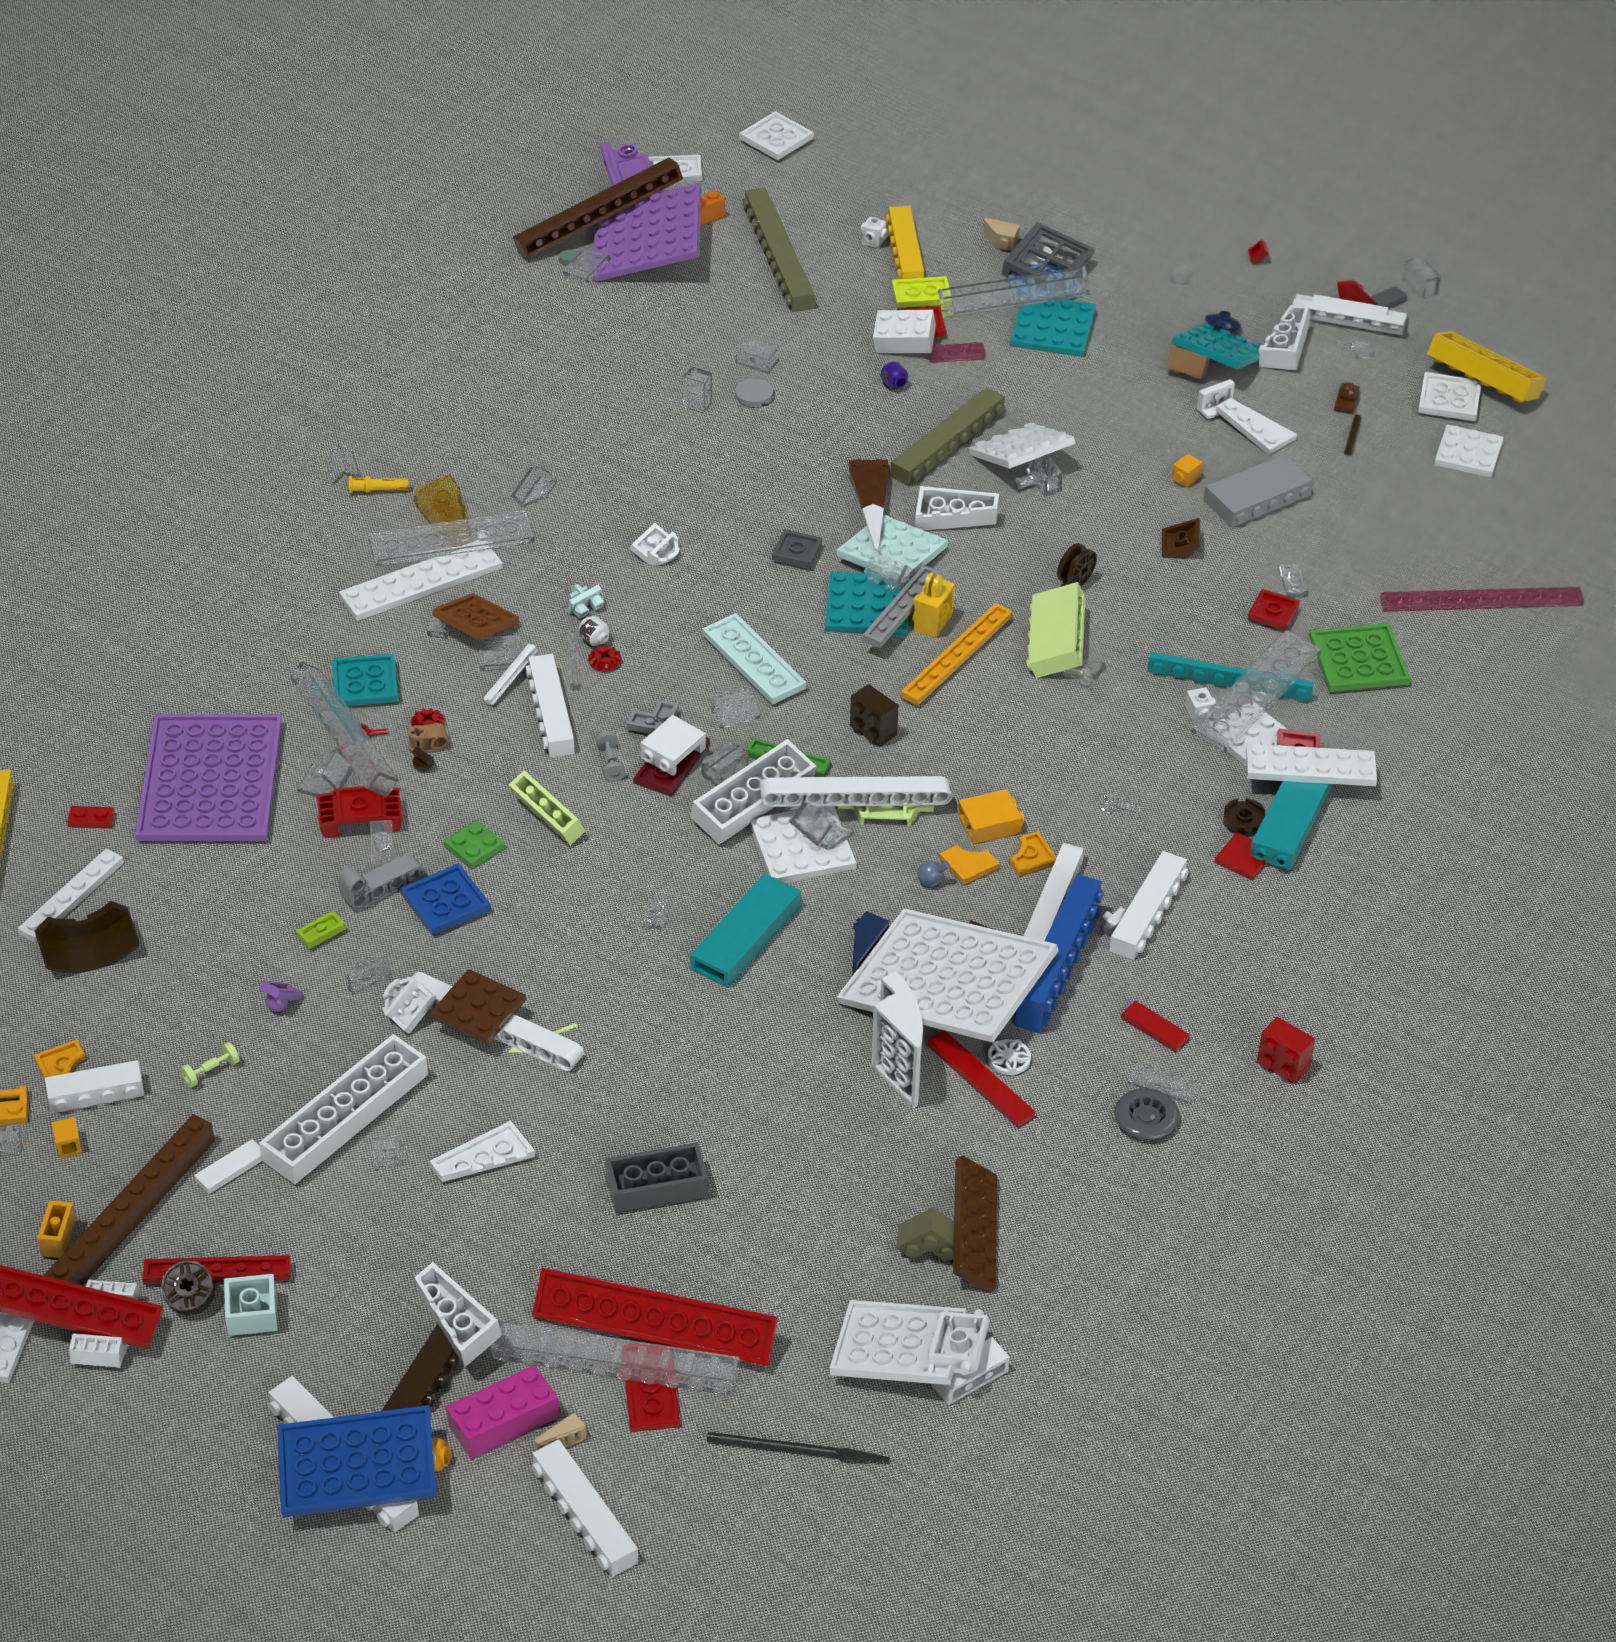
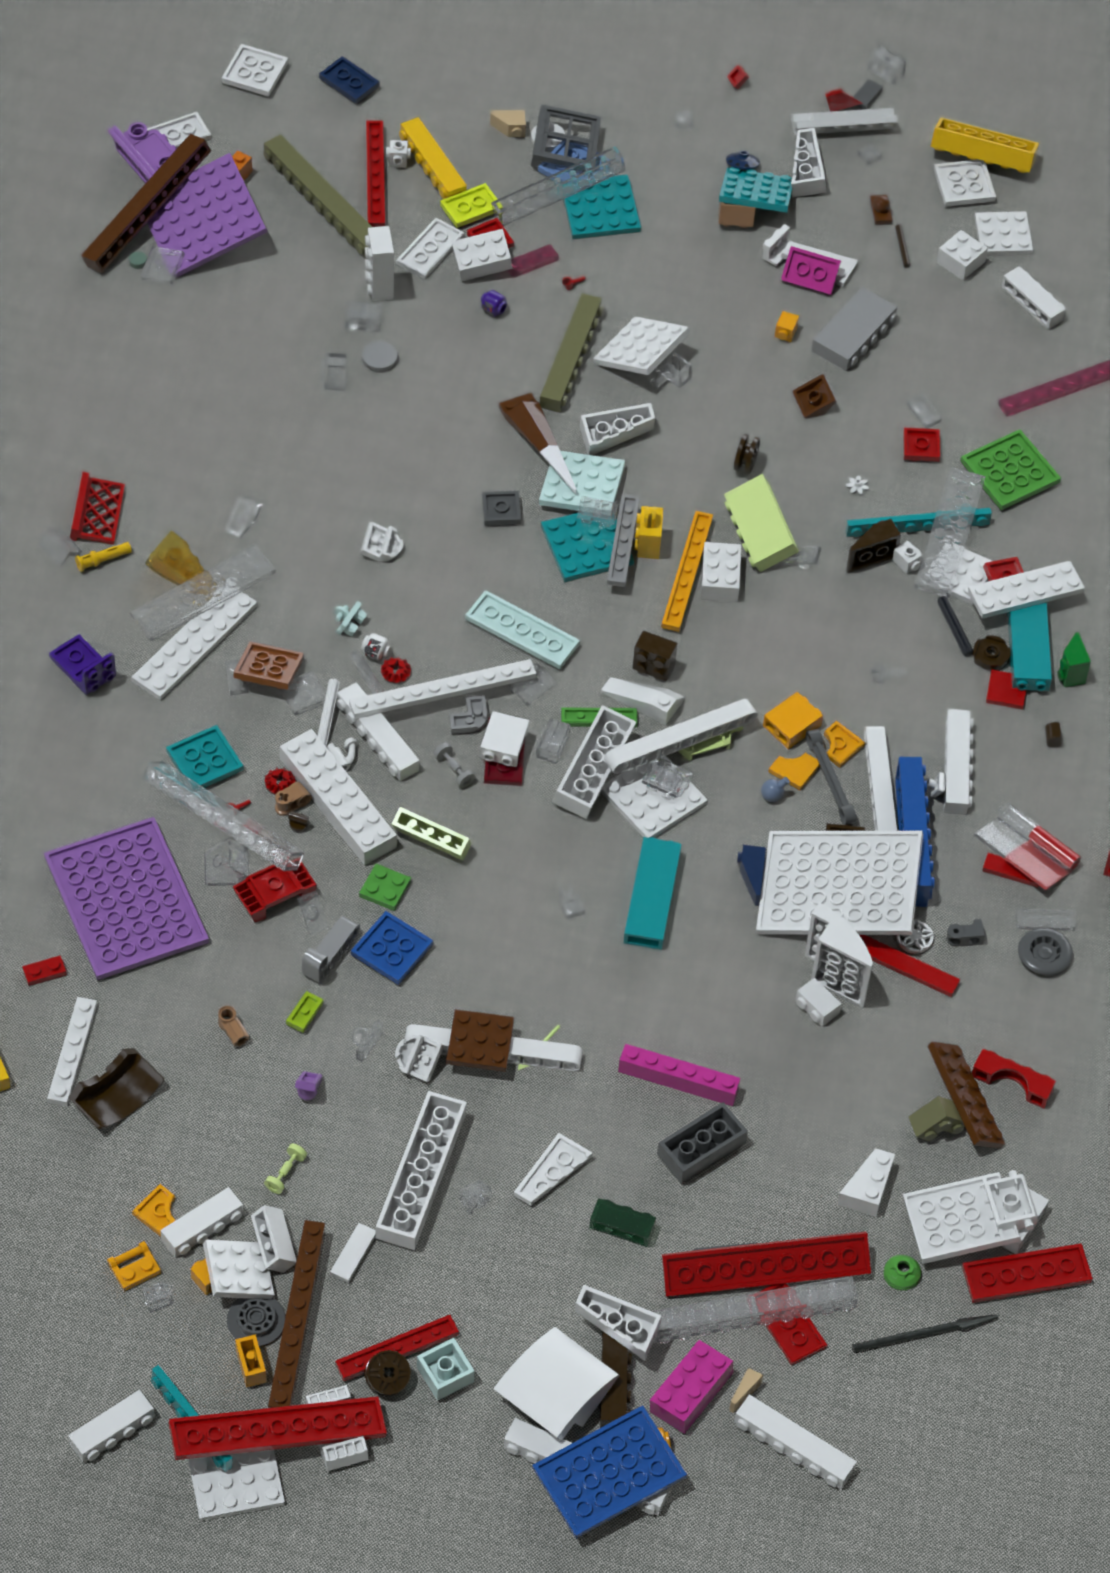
camera: 25 degrees left, 10 degrees up
(90, 1190) = (256, 1316): none -> dark grey wheel
(99, 1139) = (237, 1270): none -> white plate
(154, 1122) = (273, 1239): none -> white brick
(239, 919) = (233, 1026): none -> medium nougat piece
(299, 568) = (84, 664): none -> dark purple bracket
(354, 1355) = (557, 1383): none -> white slope
(384, 438) = (82, 504): none -> red fence
(474, 750) = (338, 797): none -> white brick
(497, 715) = (350, 746): none -> white plant
(527, 1228) = (622, 1222): none -> clear green brick
(636, 682) = (442, 688): none -> white plate
(672, 1106) = (679, 1074): none -> dark pink brick
(791, 307) = (379, 263): none -> white brick
(807, 1387) = (902, 1280): none -> bright green piece
(817, 1276) = (868, 1184): none -> white wedge
(841, 244) = (375, 173): none -> red plate
(846, 755) = (649, 700): none -> white wedge
(855, 318) = (429, 248): none -> white tile
(863, 164) = (349, 79): none -> dark blue plate
(863, 1085) = (818, 1002): none -> white brick
(947, 1425) = (1027, 1273): none -> red plate
(982, 380) = (568, 282): none -> red hand
(990, 663) = (721, 571): none -> white brick
(1001, 880) = (846, 810): none -> dark grey piece
(1022, 1207) = (993, 1067): none -> red arch
(1066, 1070) = (966, 934): none -> dark grey leg
(1163, 682) = (874, 546): none -> dark brown slope
(1183, 1008) = (1028, 846): none -> clear door
(1185, 628) = (857, 484): none -> white plant
(1218, 781) = (955, 626): none -> black axle
(1239, 428) = (811, 270): none -> dark pink plate
(1271, 911) = (1053, 735): none -> dark brown brick
(1327, 847) = (1074, 663): none -> green slope
(1411, 456) = (962, 255): none -> white brick
(1470, 512) = (1033, 297): none -> white brick

